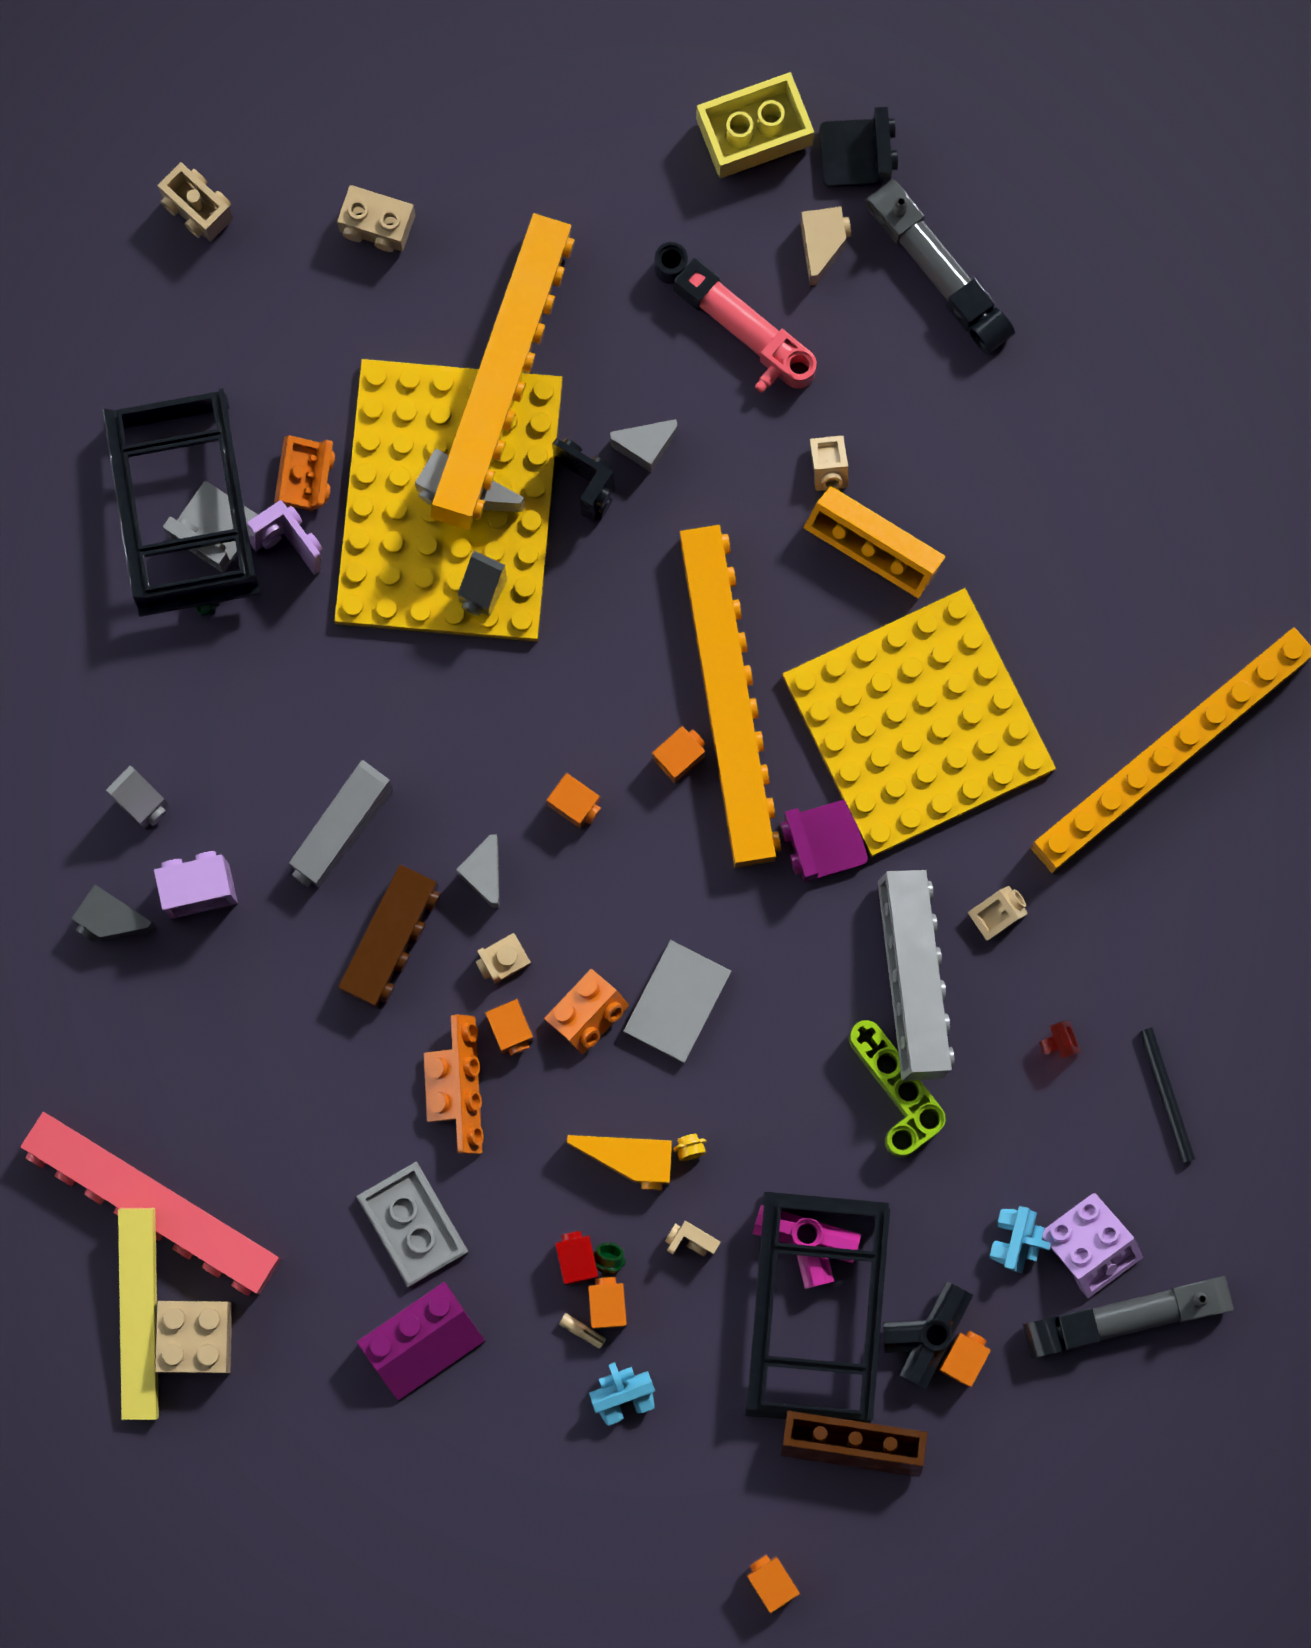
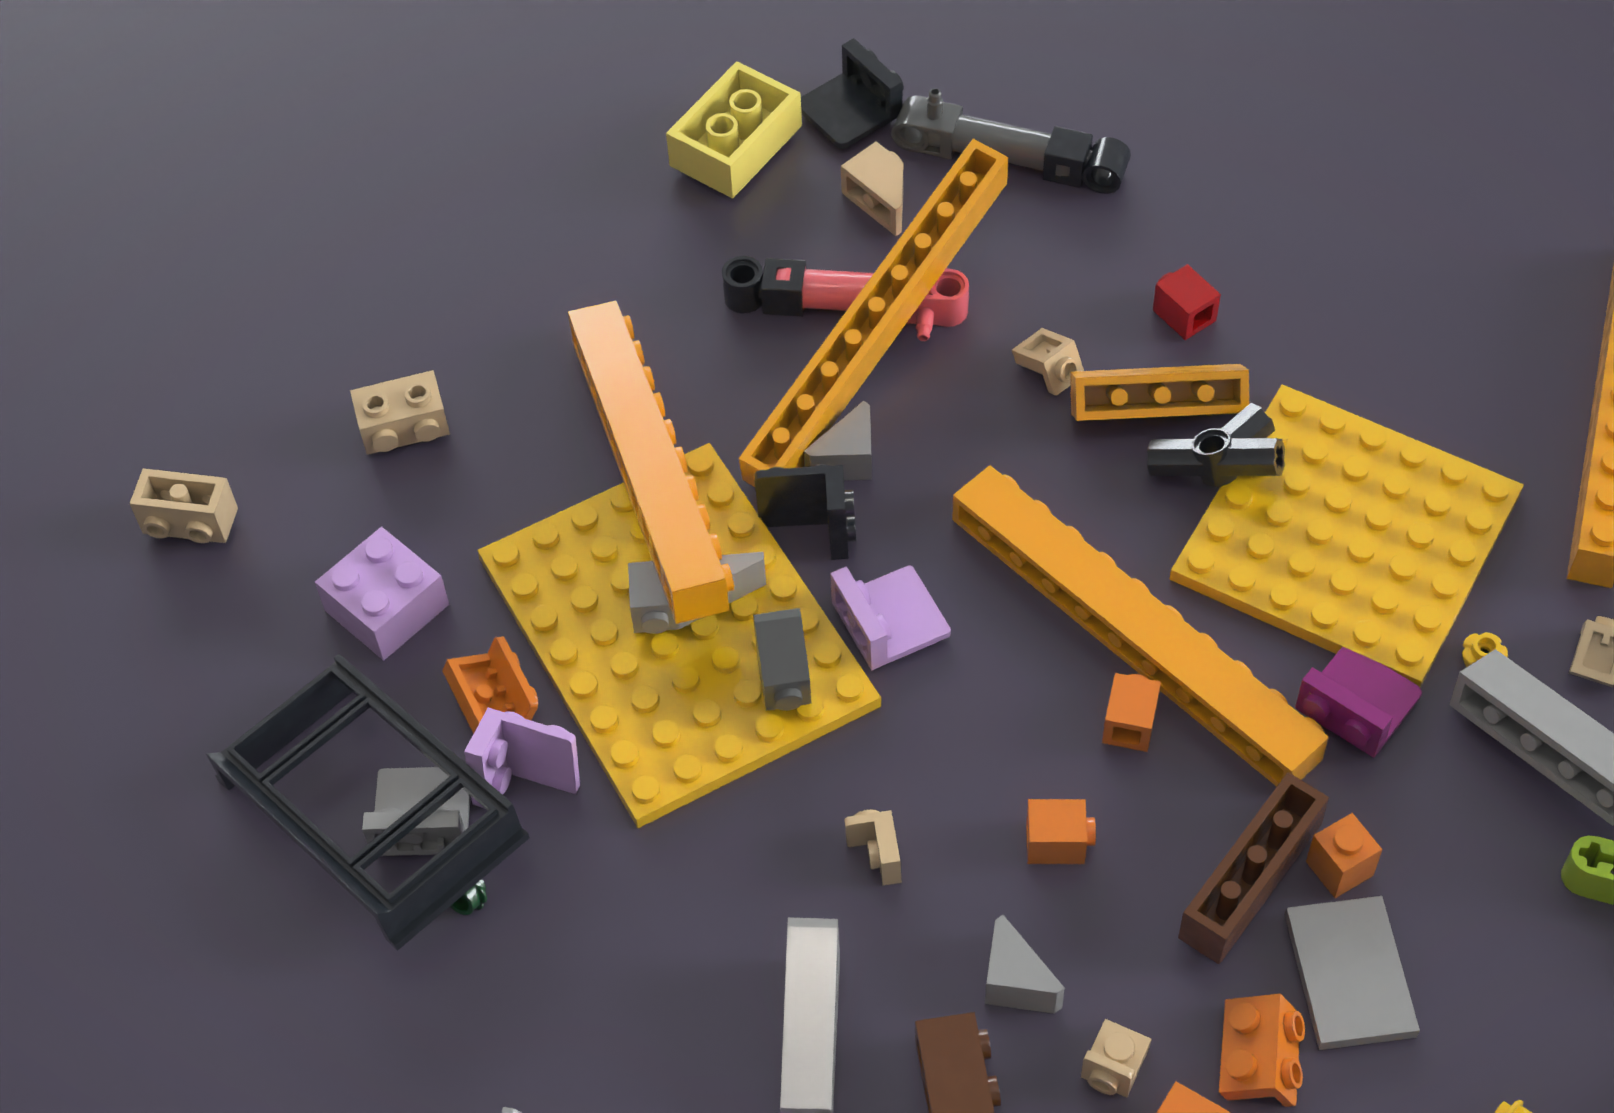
camera: 30 degrees left, 25 degrees down
(281, 354) = (382, 593): none -> lavender brick
(465, 741) = (878, 833): none -> tan bracket
(584, 584) = (888, 614): none -> lavender bracket
(666, 904) = (1253, 868): none -> reddish brown brick
(725, 364) = (878, 312): none -> light orange brick
(727, 932) = (1343, 855): none -> orange brick
(887, 616) = (1222, 453): none -> black piece
(929, 853) = (1474, 644): none -> yellow plate
(954, 480) = (1186, 301): none -> red brick

